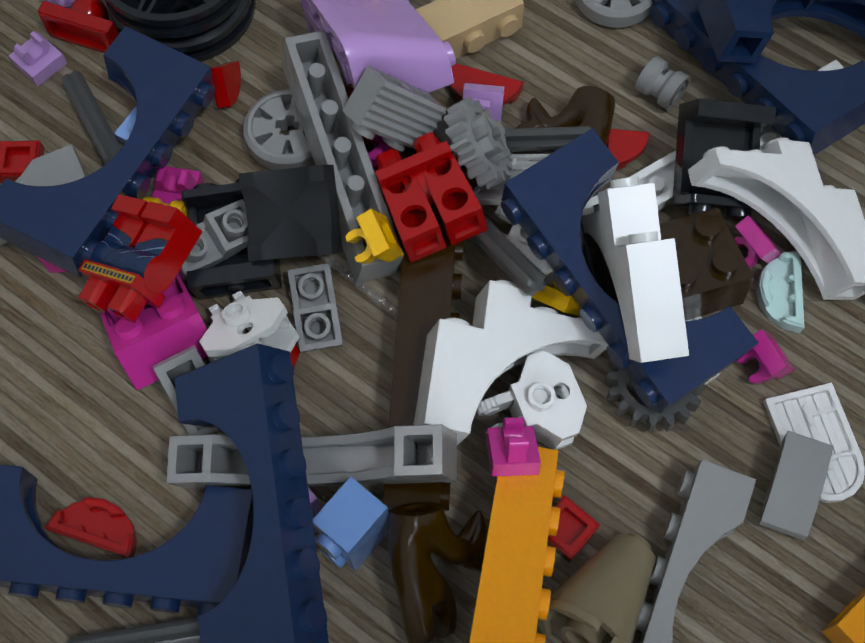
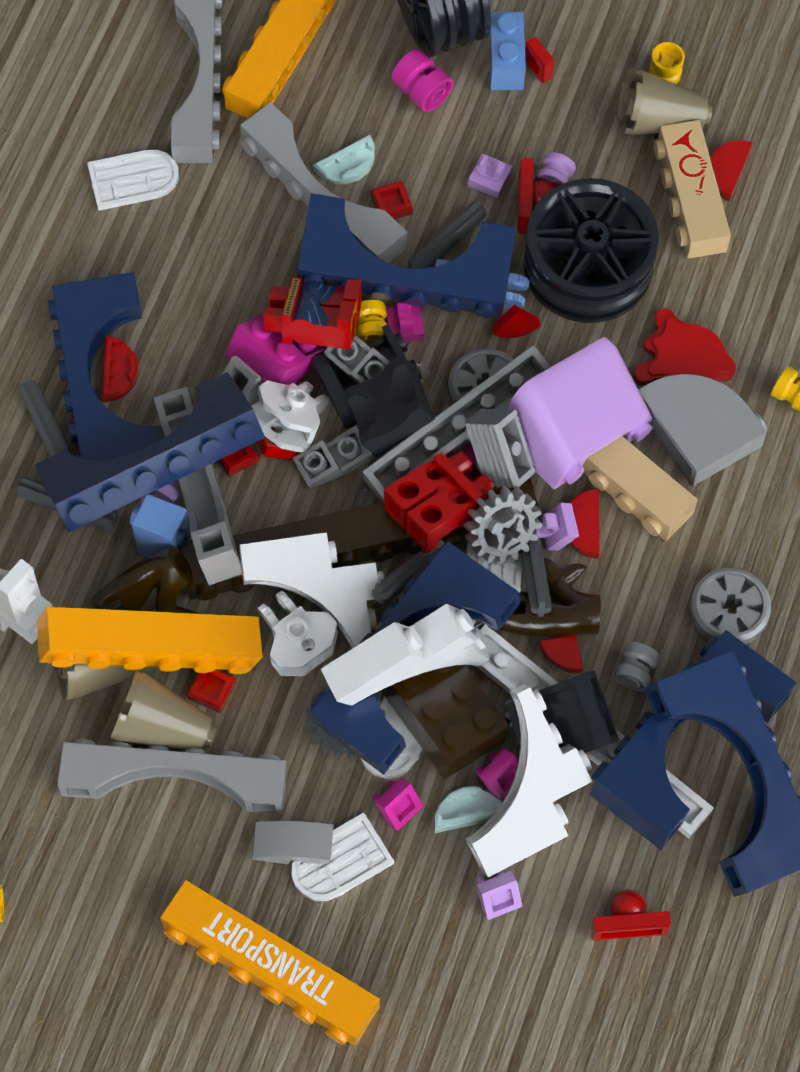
camera: 70 degrees right, 0 degrees up
(378, 236) = (382, 470): yellow tile -> none
(512, 449) = (248, 620): dark pink tile -> none

